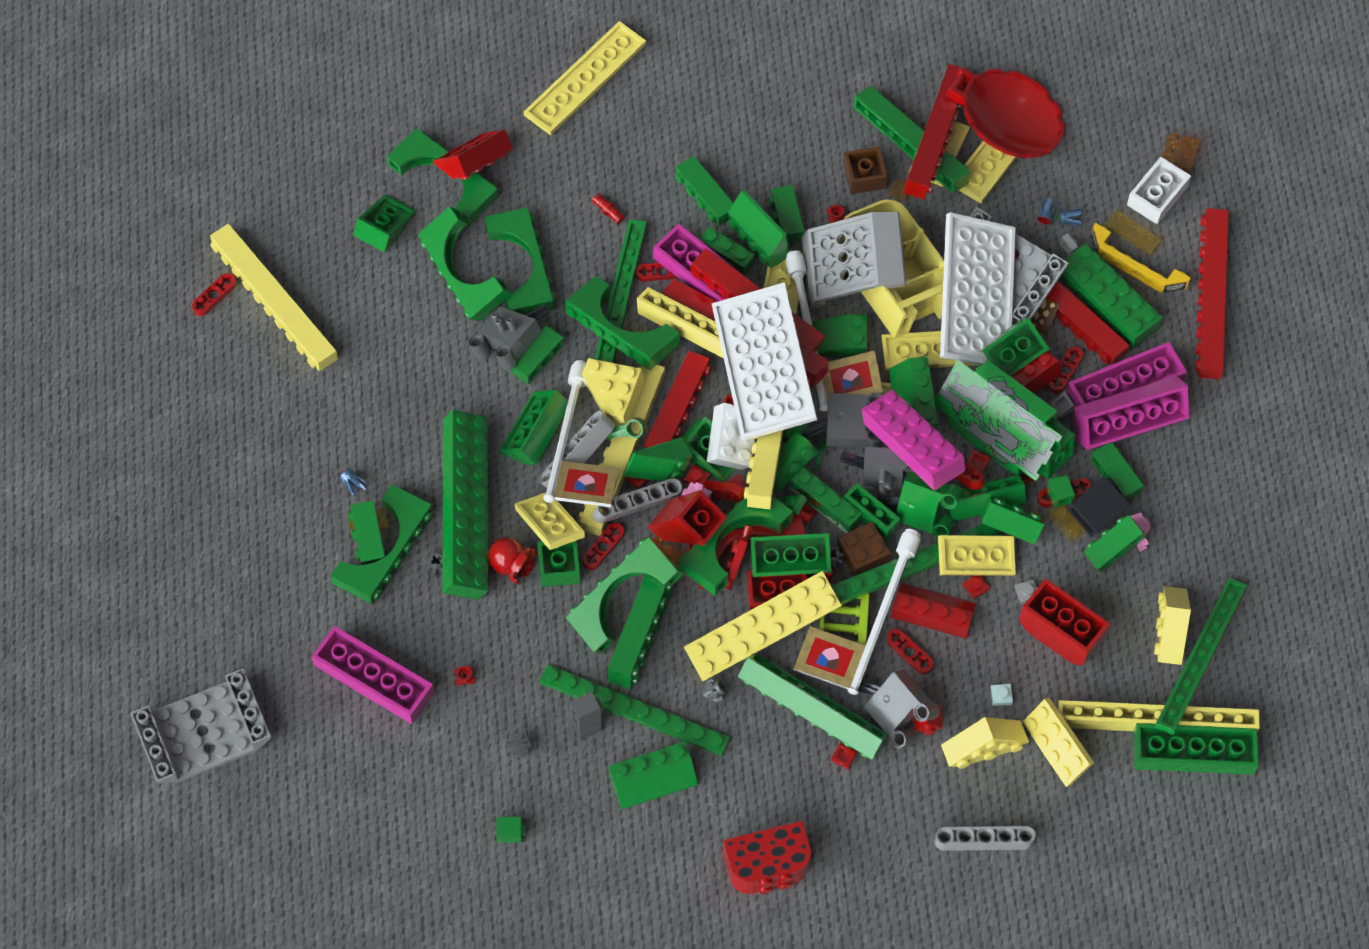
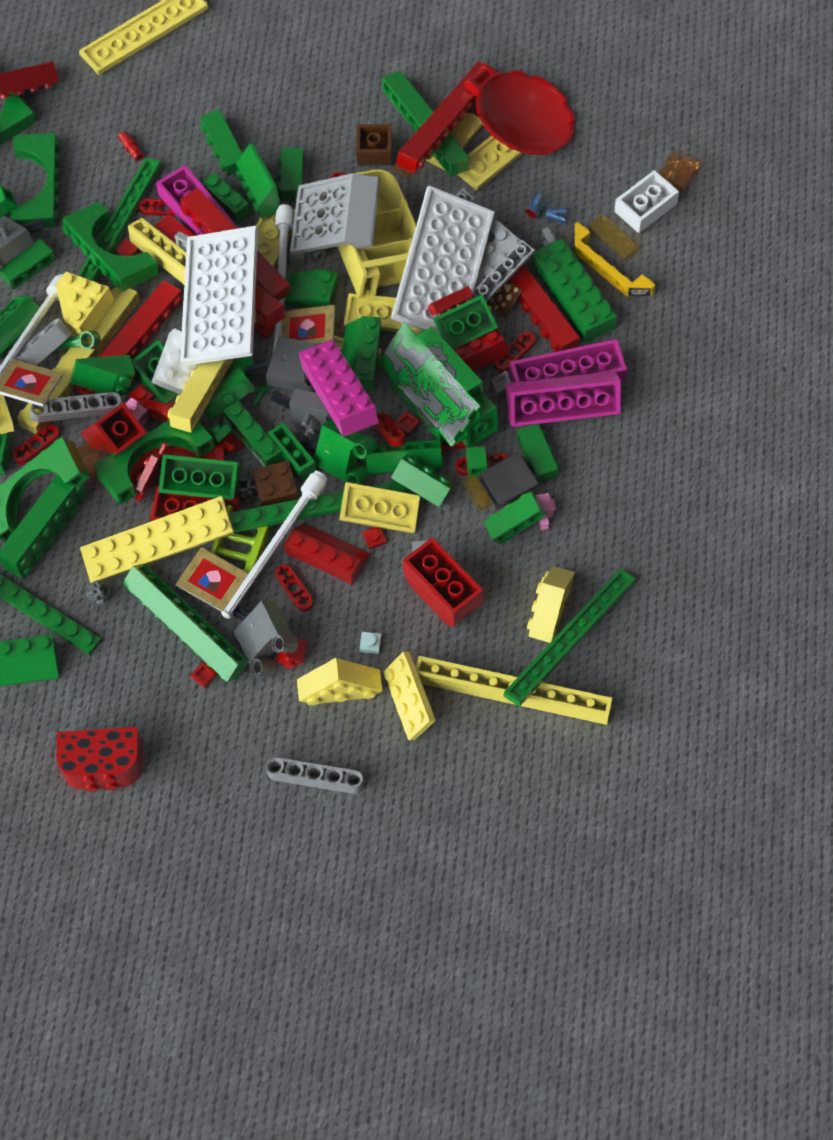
camera: 15 degrees right, 0 degrees up
(636, 322) = (126, 248): none -> red tile
(704, 308) = (181, 240): none -> light grey plate
(997, 327) = (447, 302): none -> red piece
(1196, 749) = (542, 726): green brick -> none
(1213, 294) = (674, 303): red brick -> none

